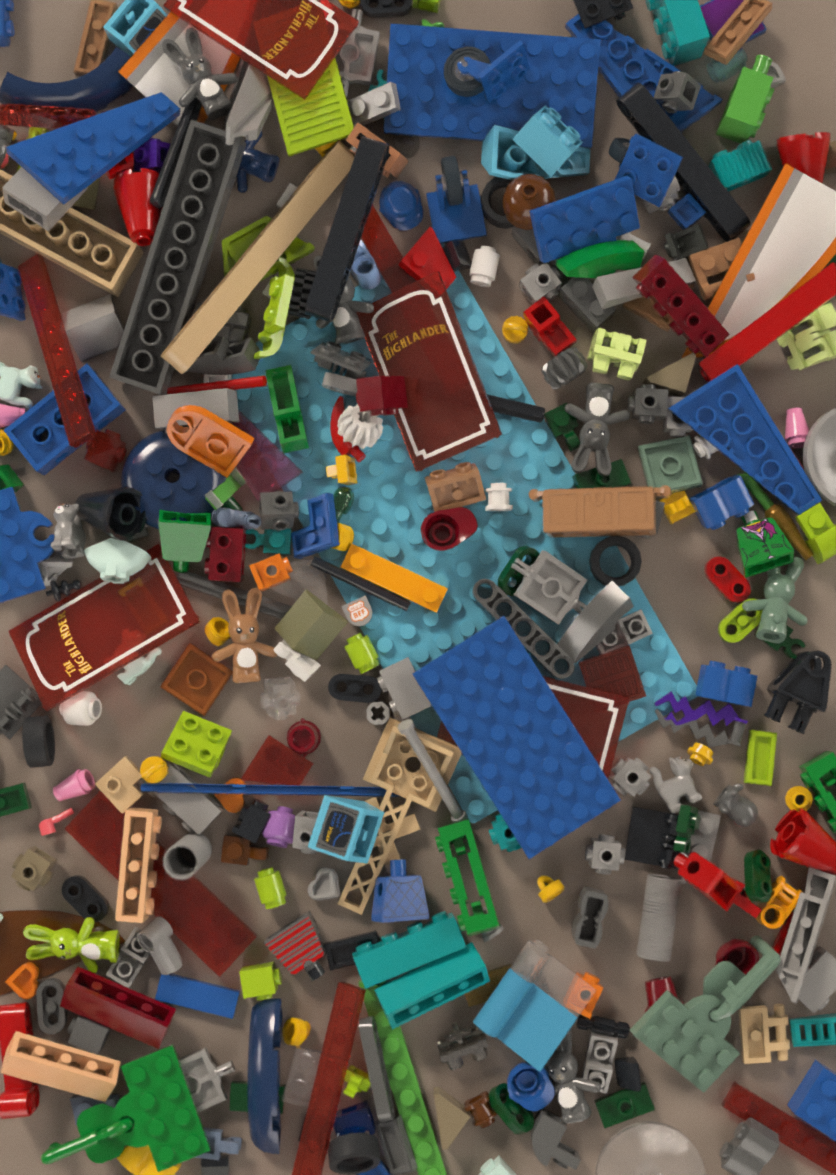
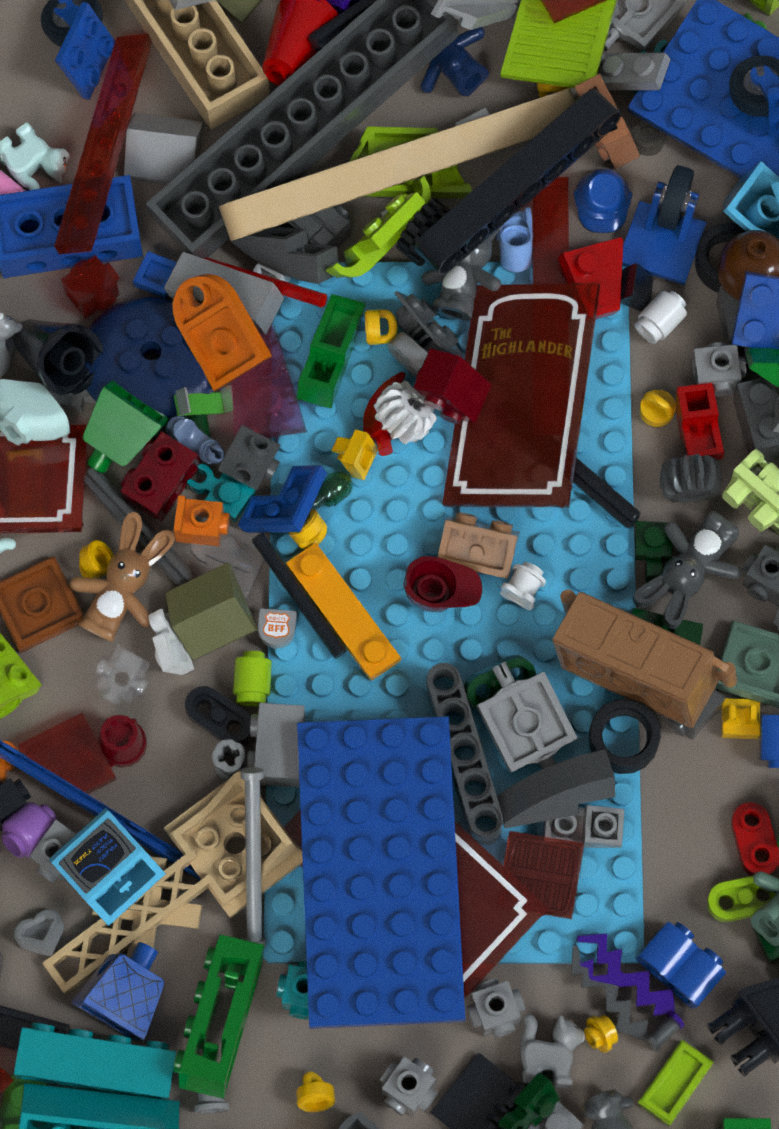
camera: 25 degrees right, 15 degrees down
(141, 418) = (154, 274): none -> blue plate
(305, 378) = (372, 326): none -> yellow tile

